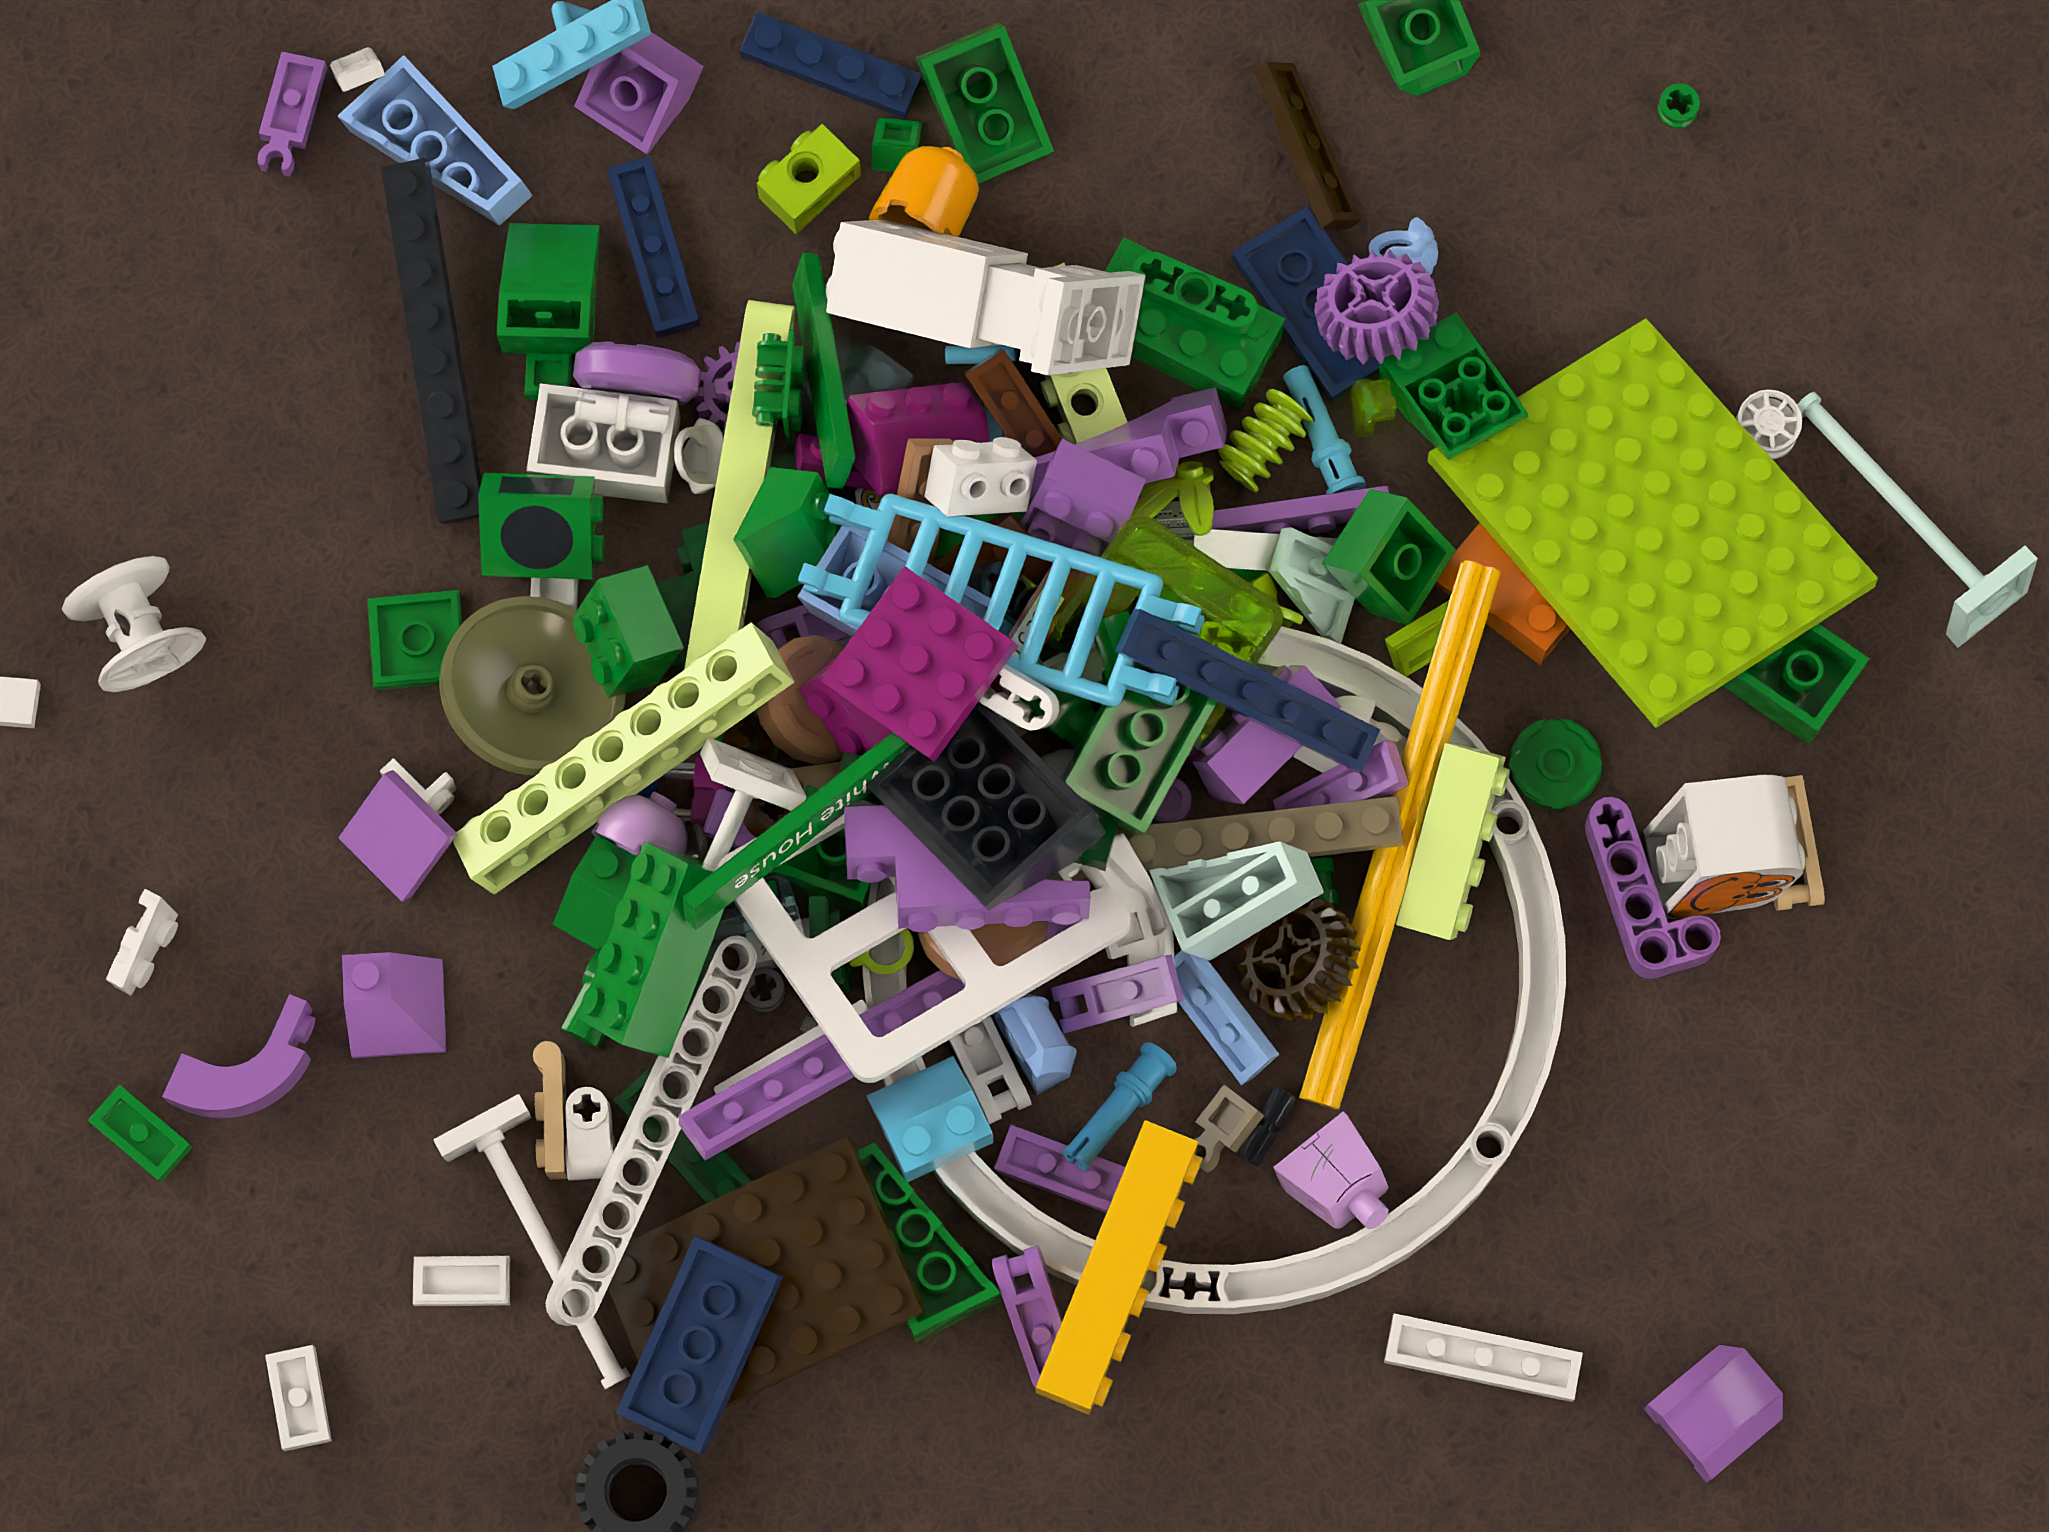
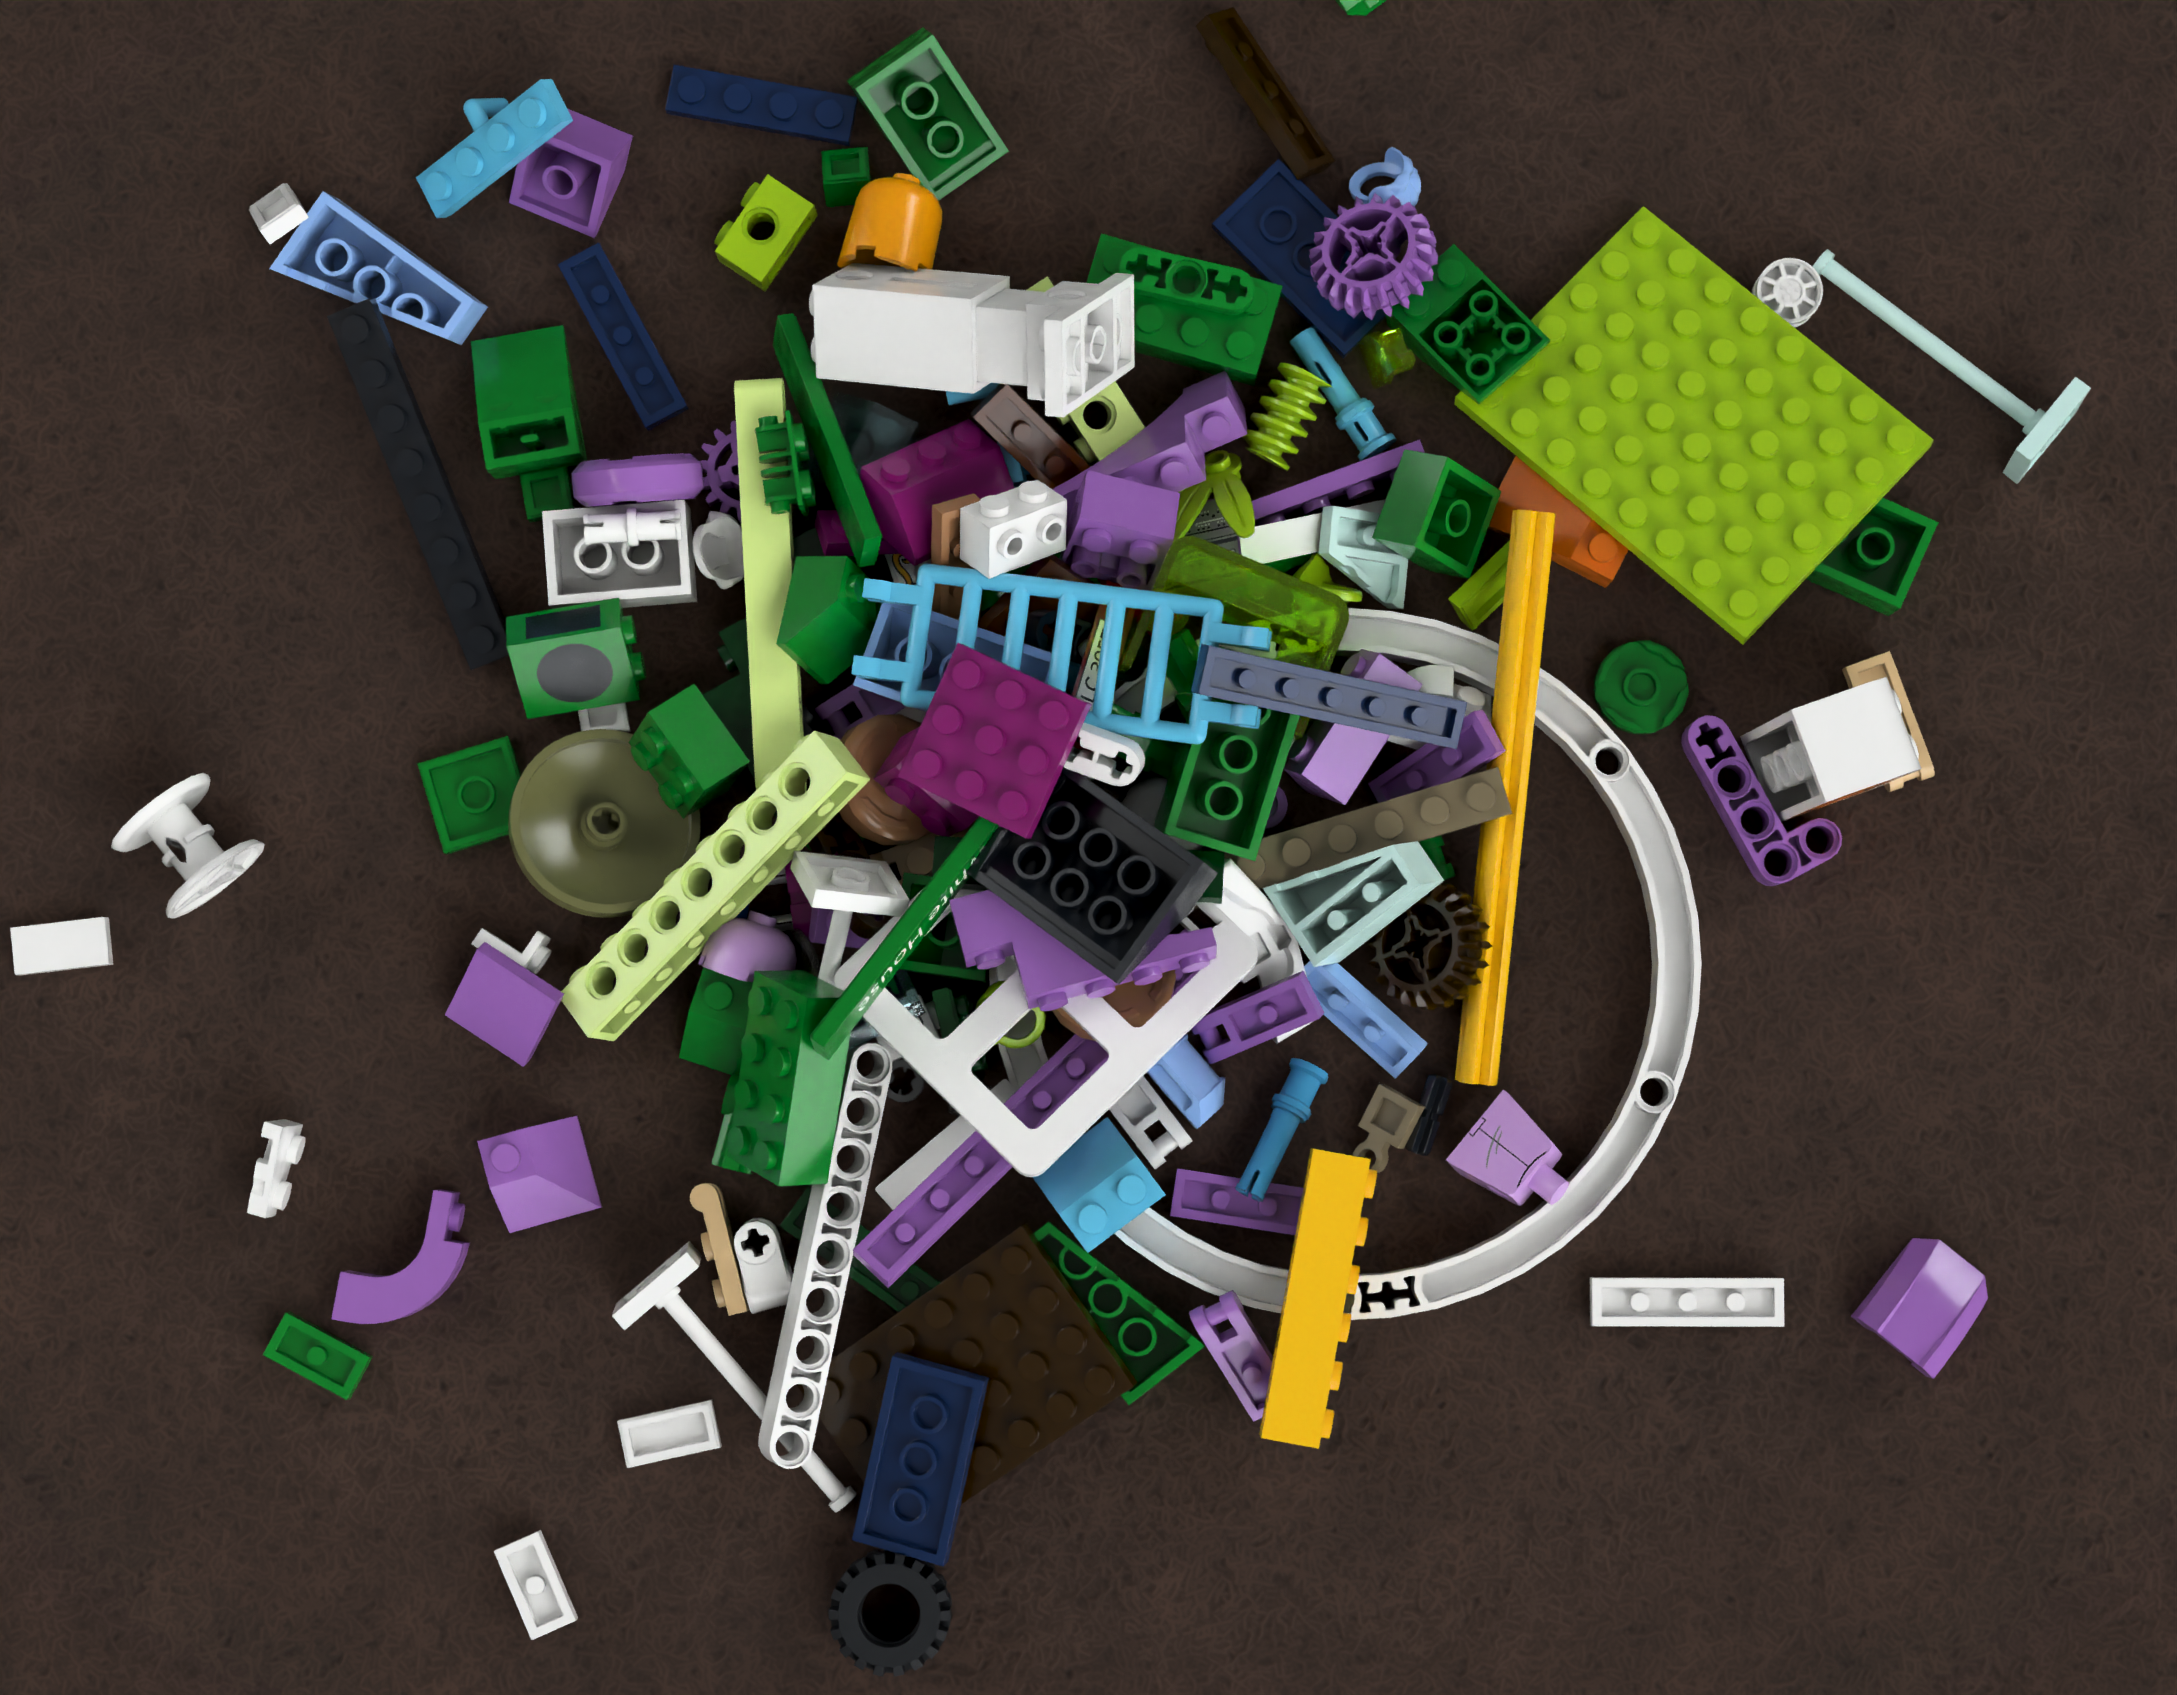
camera: 10 degrees left, 10 degrees up
(290, 108) = (219, 265): medium lavender plate -> none
(1452, 840) = (1557, 794): yellowish green brick -> none

